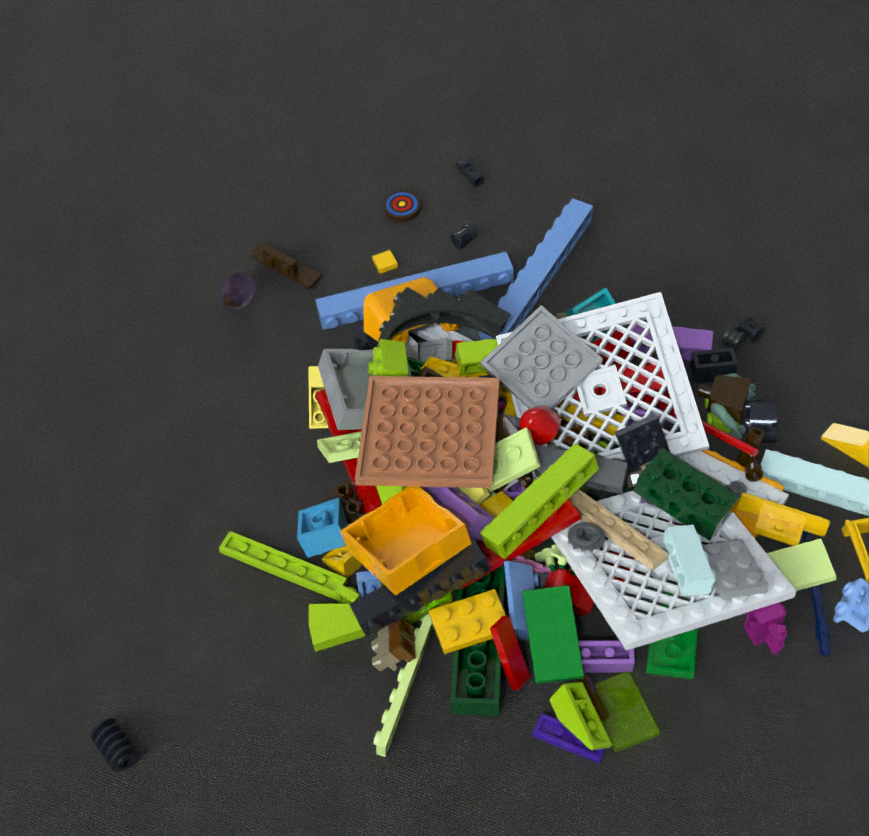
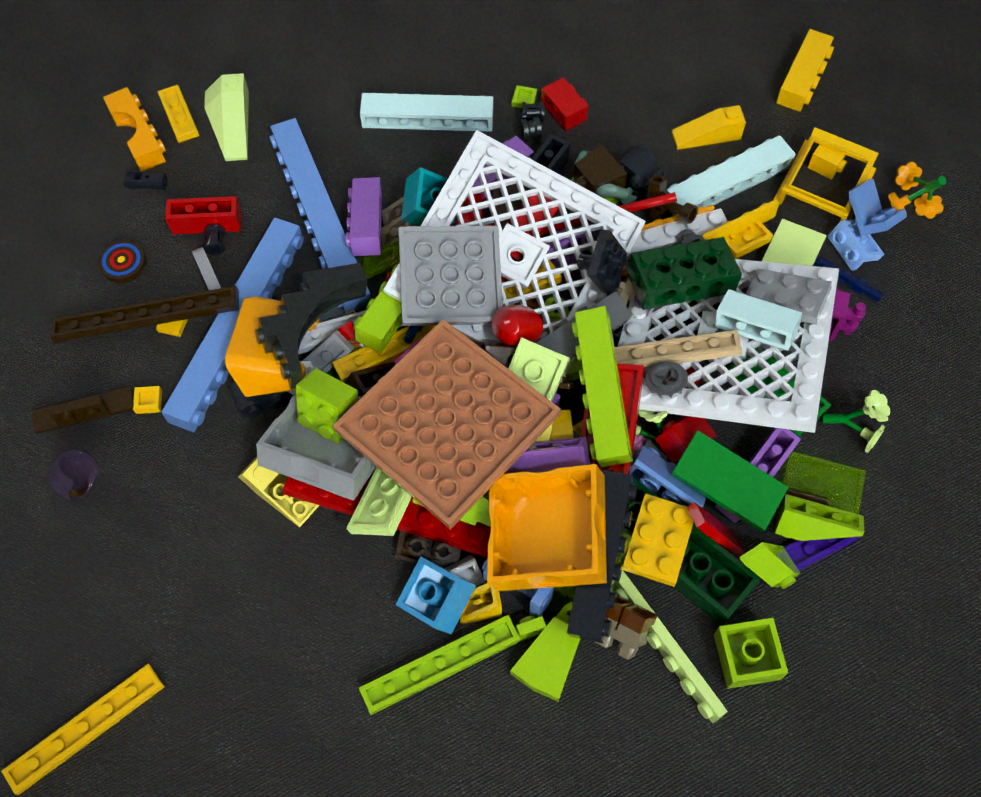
camera: 55 degrees left, 10 degrees up
(97, 417) = (82, 729): none -> yellow tile
(320, 288) = (147, 399): none -> yellow plate
(374, 243) = (145, 314): none -> dark brown tile
(434, 252) = (206, 269): none -> light grey beam
(441, 737) = (750, 653): none -> lime brick
(466, 211) = (194, 214): none -> red brick
(492, 152) = (143, 145): none -> light orange arch
(515, 703) = (771, 564): none -> lime slope
(537, 149) = (178, 113): none -> yellow tile
(559, 294) = (365, 218): none -> medium lavender brick
(563, 175) = (228, 113): none -> yellowish green wedge
(682, 272) = (426, 112): none -> light aqua brick
(703, 692) = (875, 407): none -> yellowish green plant
(761, 316) = (523, 94): none -> lime tile
(778, 341) = (564, 104): none -> red brick

